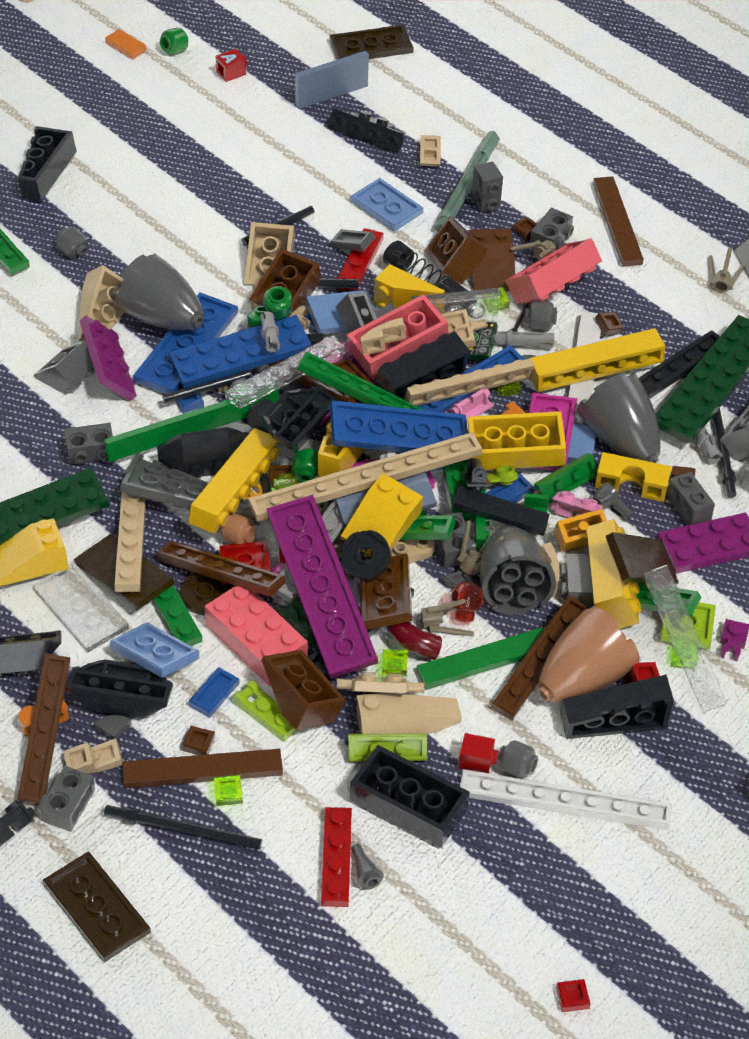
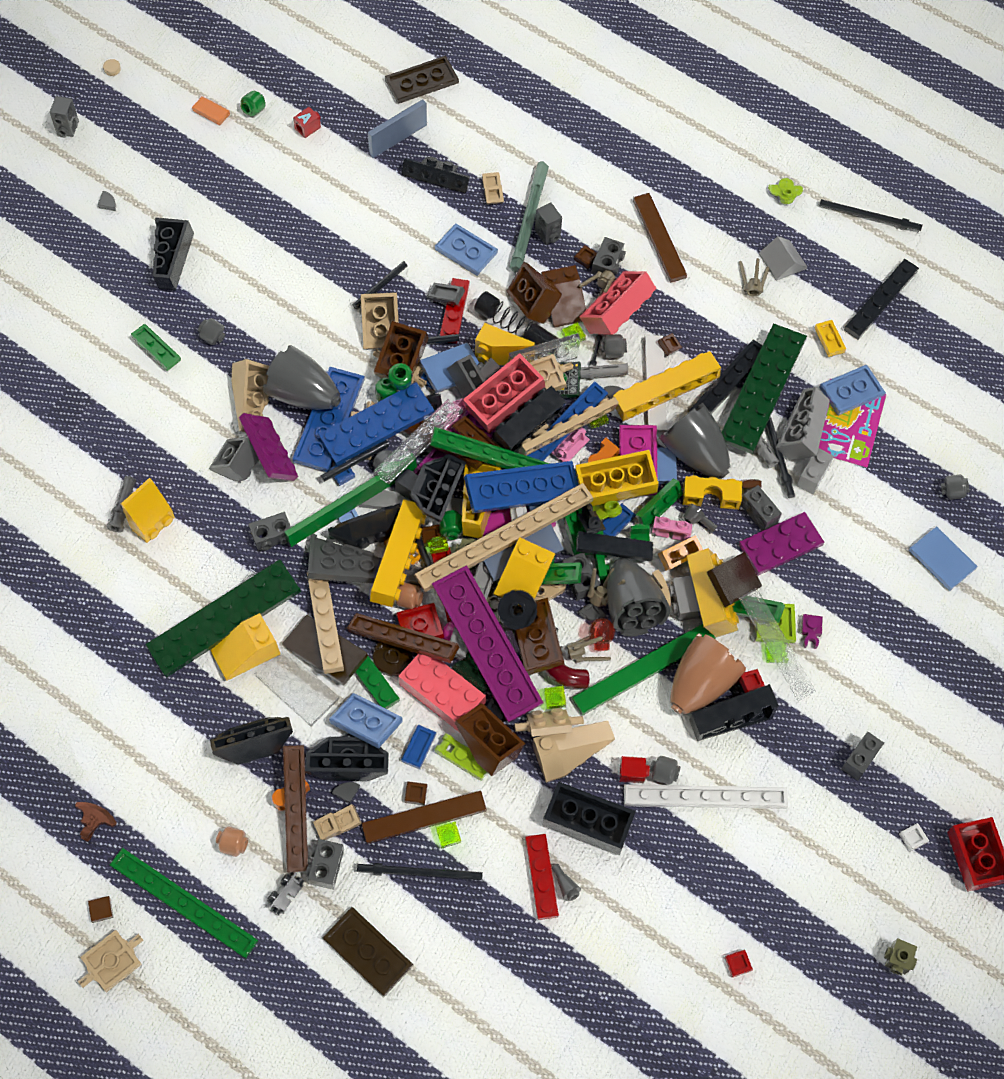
camera: 10 degrees left, 15 degrees up
(270, 331) = (399, 406): light grey pin -> none
(375, 339) = (489, 406): tan slope -> none
(407, 745) = (568, 774): lime tile -> none
(527, 674) = (663, 681): reddish brown tile -> none

